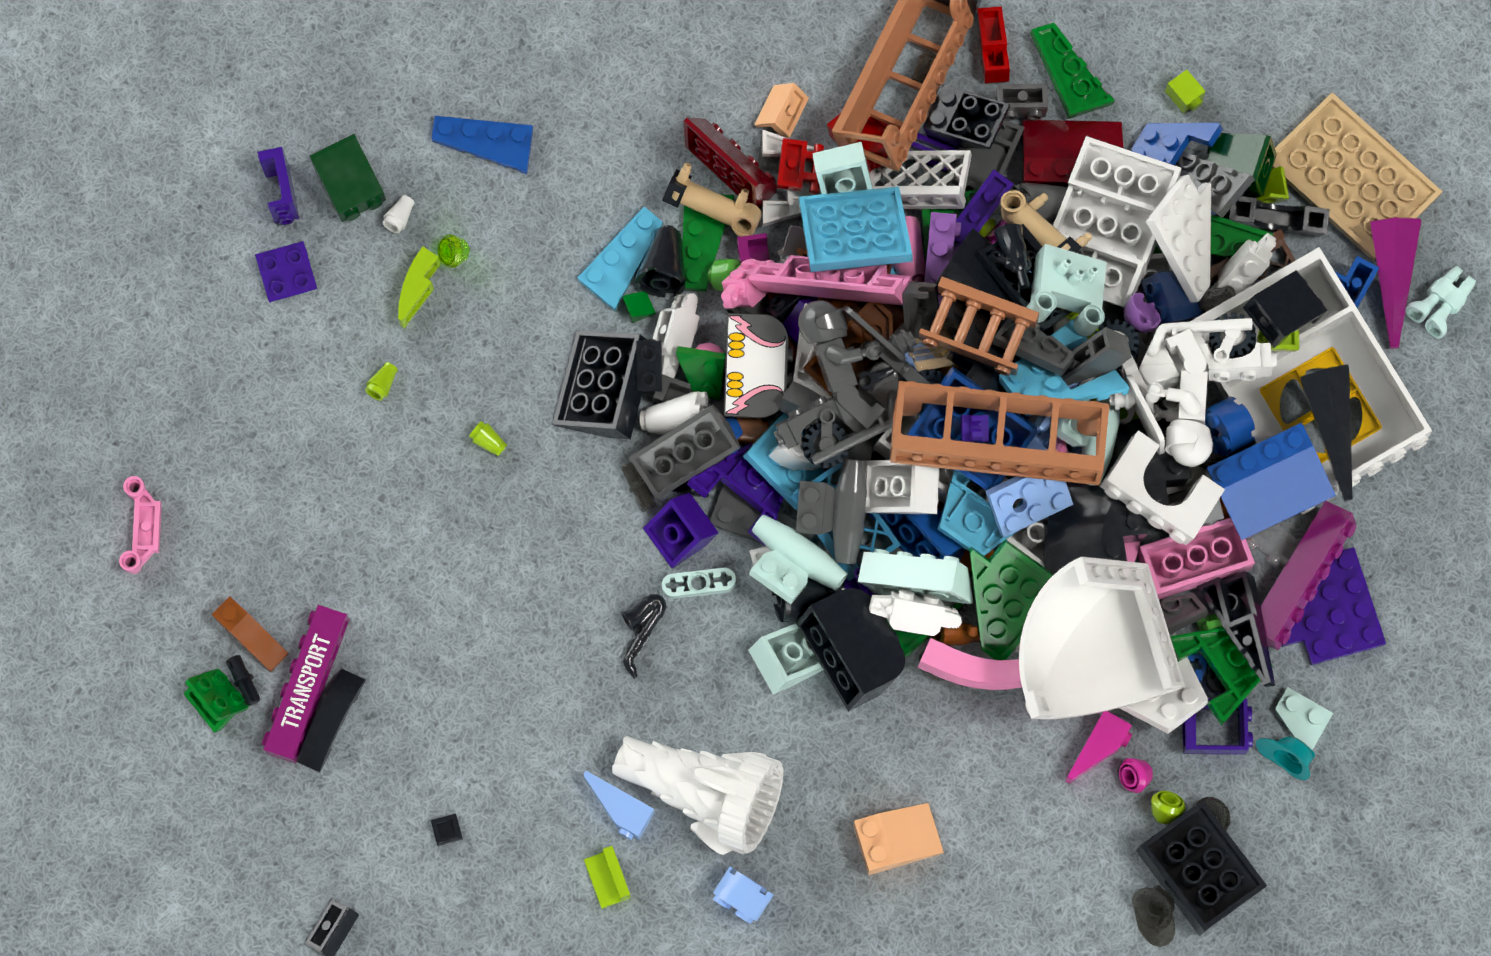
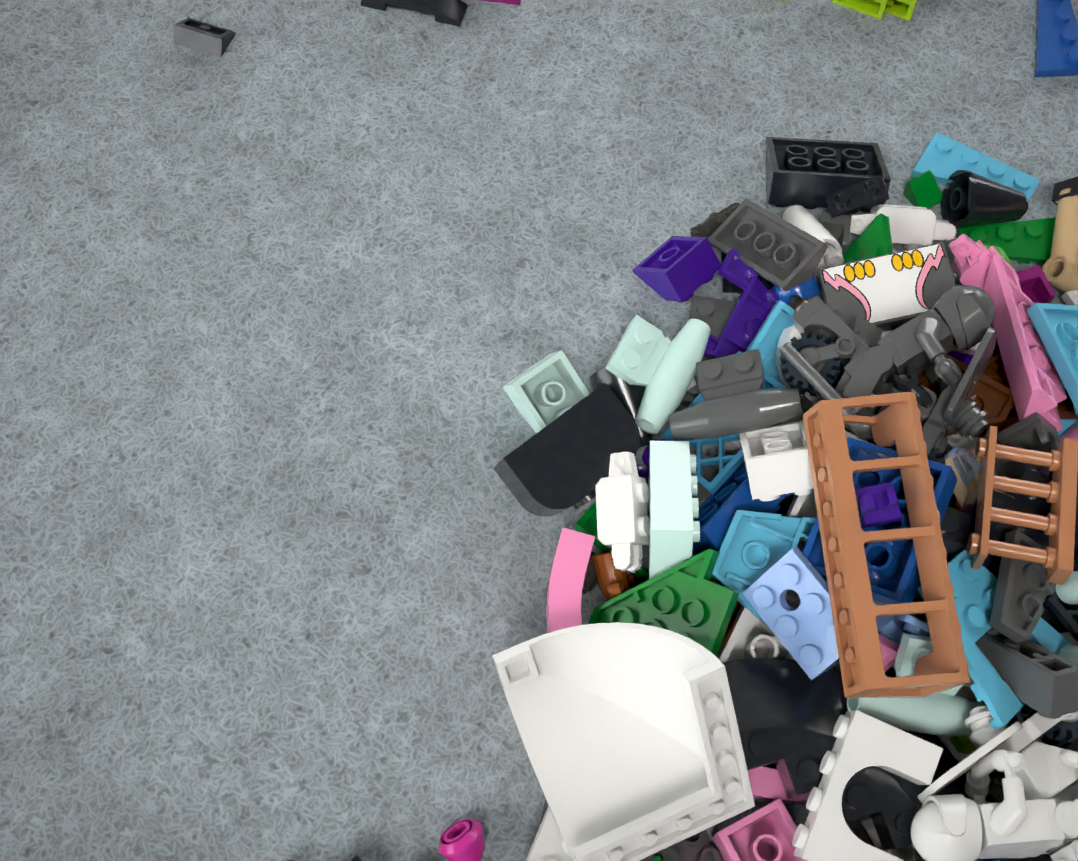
camera: 80 degrees right, 10 degrees down
(446, 830) = (312, 111): black tile -> none
(452, 250) = (927, 20): clear neon green cone -> none
(487, 438) = (734, 80): lime cone -> none
(607, 878) = (274, 260): lime panel -> none
(624, 810) = (350, 255): light blue slope -> none
(647, 615) = (572, 249): black piece -> none
(681, 593) = (623, 285): light aqua beam -> none
(726, 794) = (366, 348): white cone -> none
(742, 894) = (257, 384): light blue brick -> none
(897, 838) = (345, 549): light nougat slope -> none
(1103, 742) = (503, 791): dark pink slope -> none

